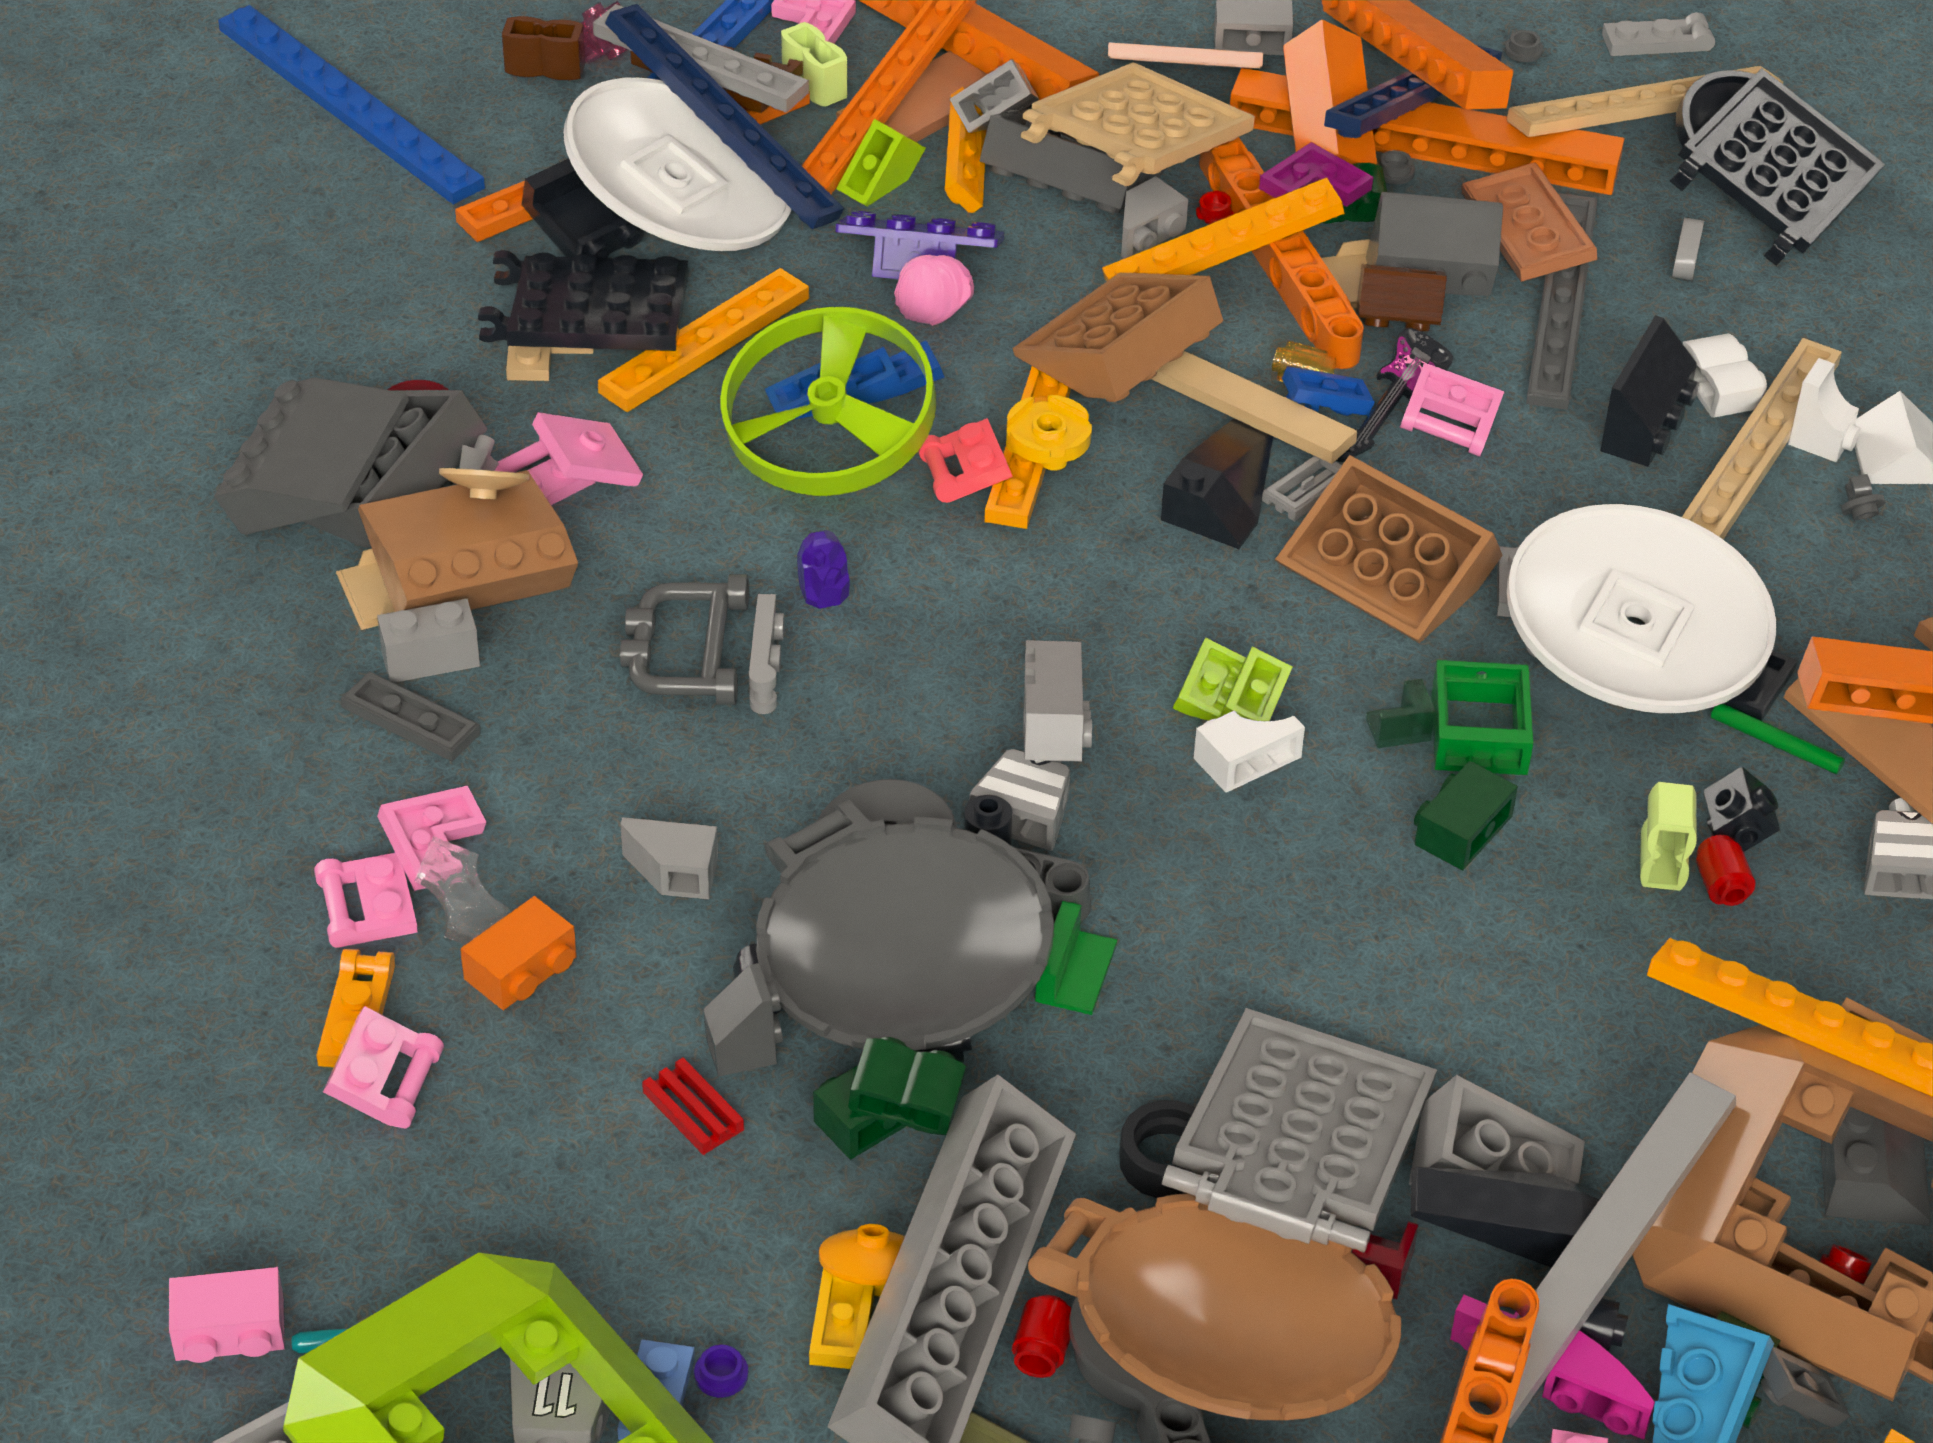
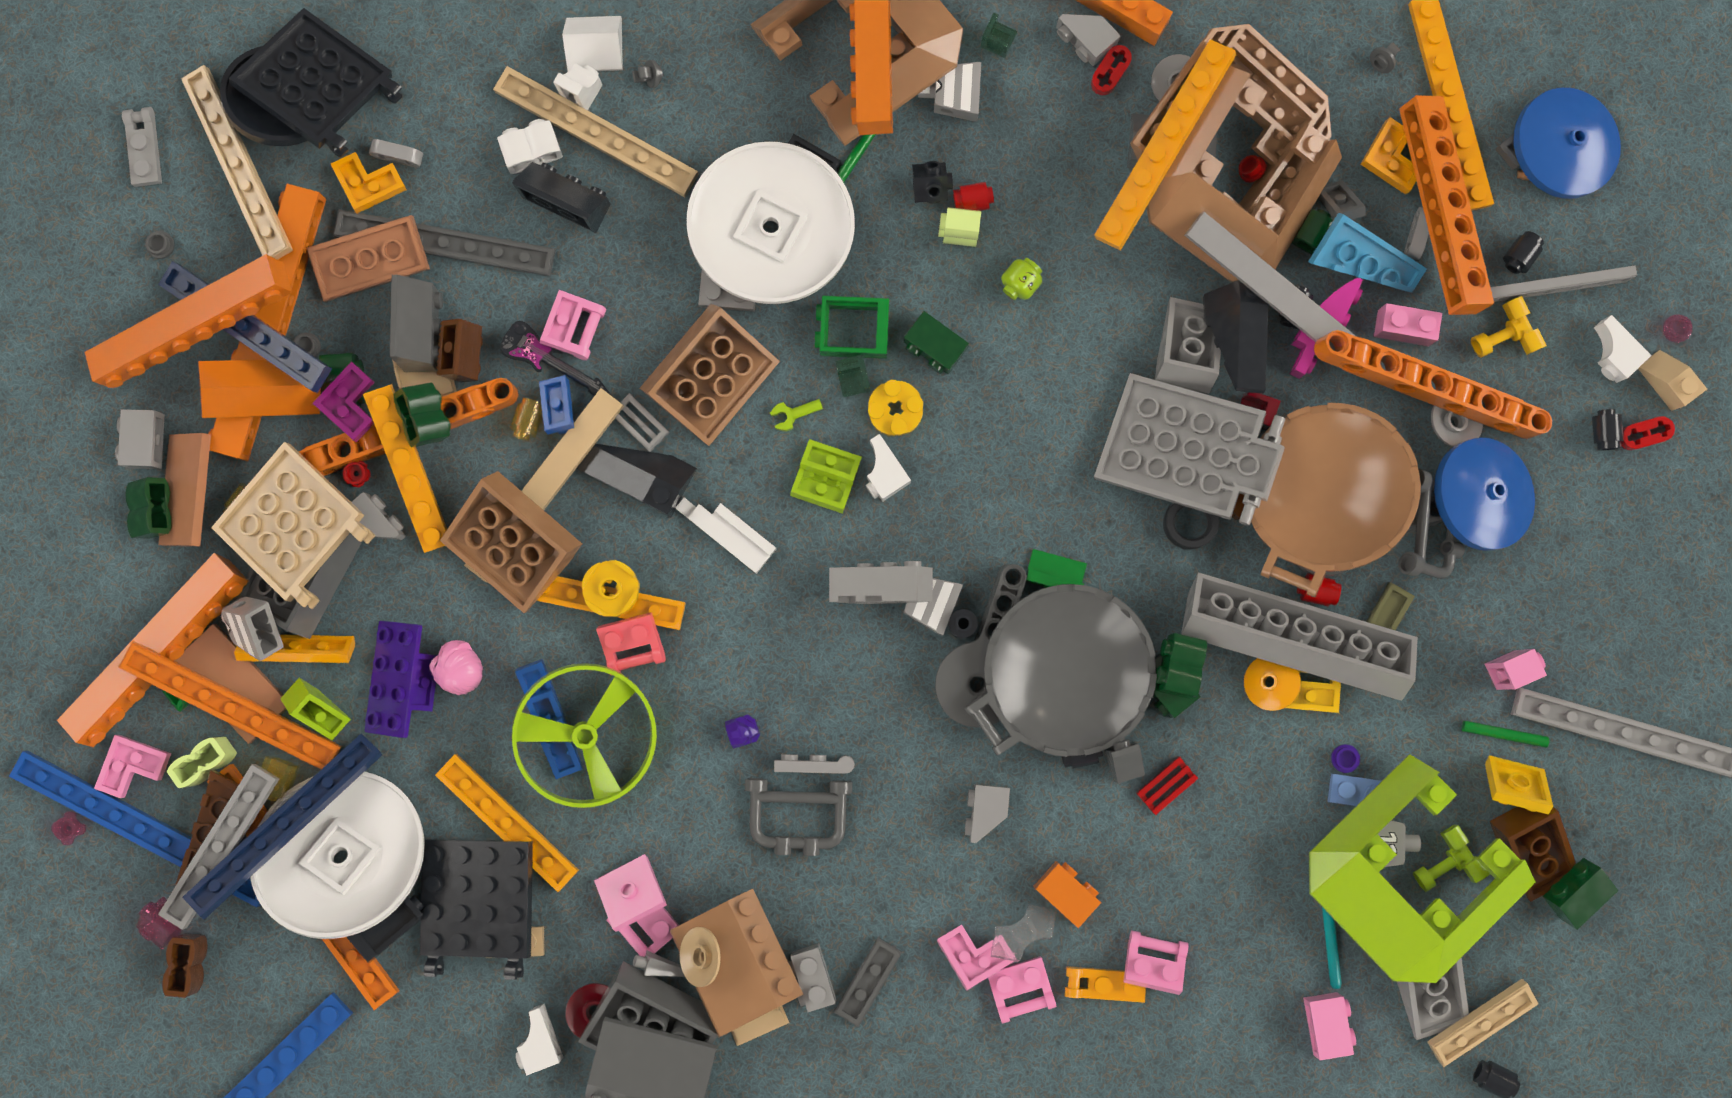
camera: 85 degrees left, 40 degrees up
(382, 360) = (541, 1046): none -> white arch
(792, 130) = (284, 770): none -> clear yellow brick
(1135, 579) = (730, 533): none -> white piece
(1170, 26) = (148, 508): none -> dark green brick
(1301, 234) = (422, 414): none -> dark green brick
(1332, 651) = (794, 413): none -> lime bar
(1349, 750) = (899, 423): none -> yellow plate
(1589, 926) = (1021, 279): none -> lime head
(1637, 219) = (366, 189): none -> light orange plate

